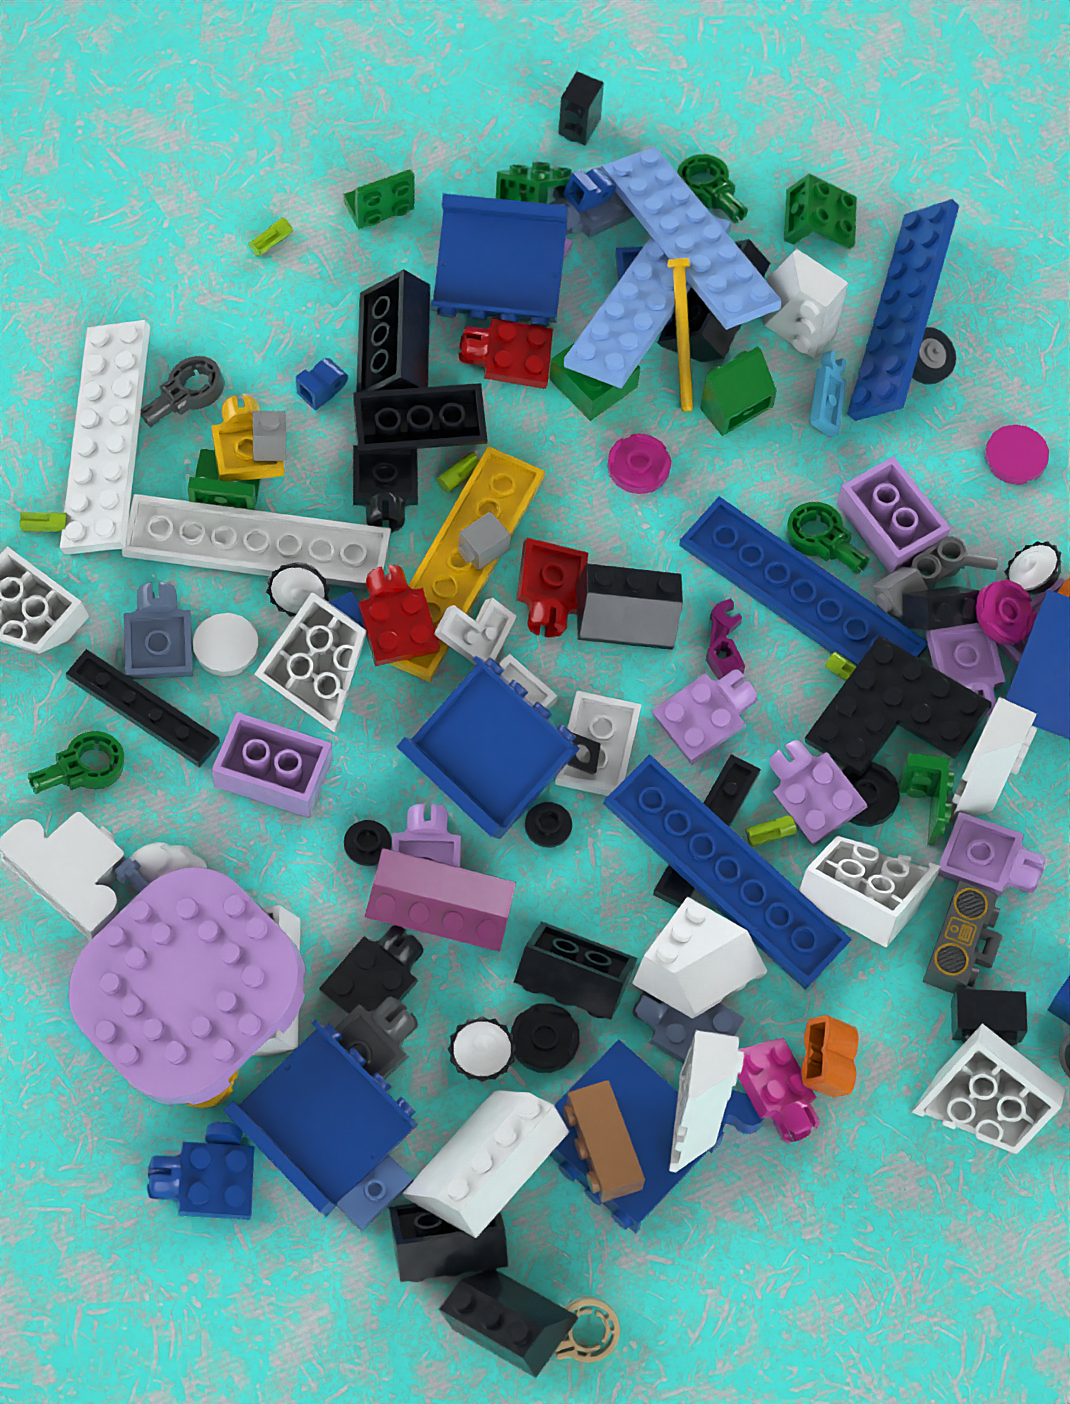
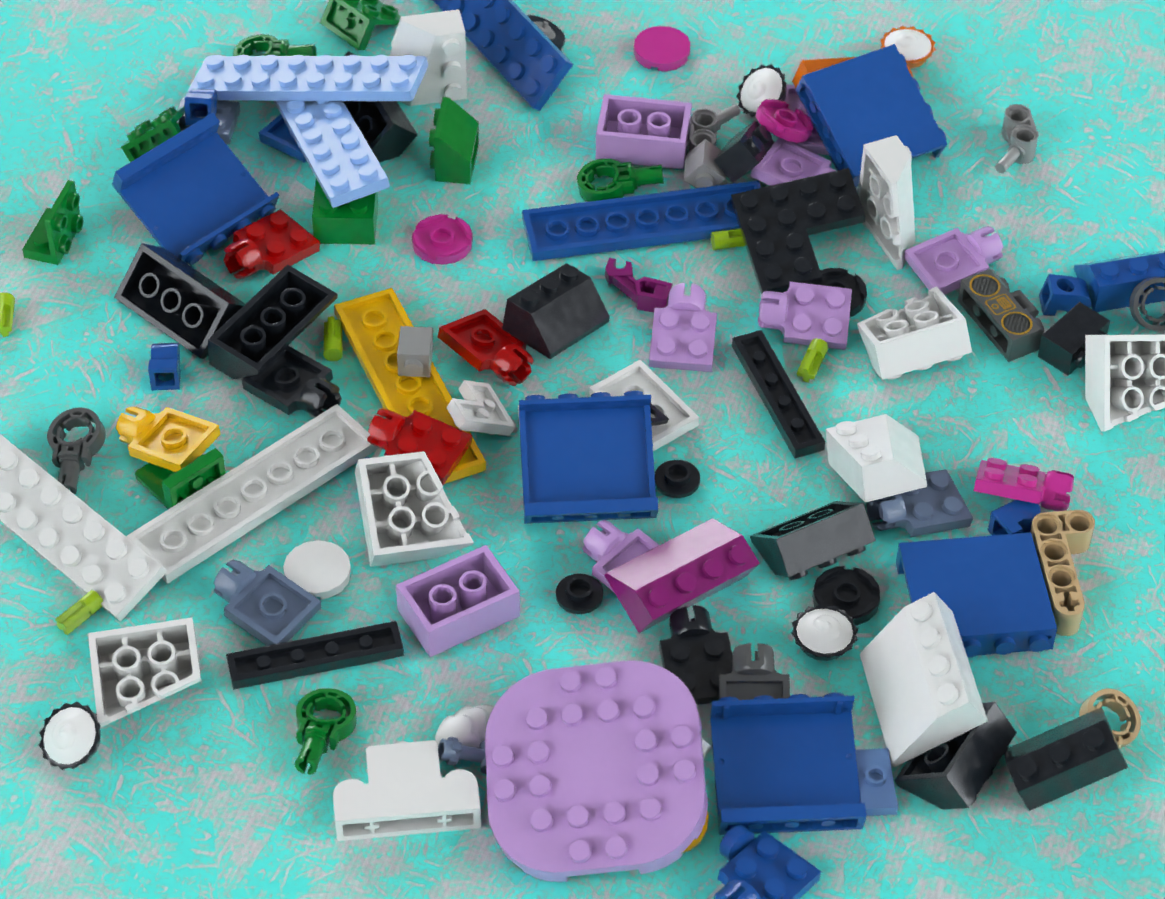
camera: 45 degrees left, 15 degrees down
(269, 436) = (186, 409): light grey brick -> none
(293, 585) = (327, 488): white piece -> none
(580, 108) = (127, 71): black brick -> none
(603, 1141) = (981, 596): medium nougat brick -> none
(682, 331) = (376, 134): yellow bar -> none
(703, 1094) = (998, 504): white wedge -> none
(715, 1185) = (1055, 539): none -> tan beam
(727, 871) = (823, 396): blue plate -> none
(828, 395) = (506, 104): medium azure plate -> none
(830, 1056) = (1026, 440): orange brick -> none
(929, 777) = (879, 244): green bracket -> none
(1034, 974) = (1063, 294): none -> blue leg

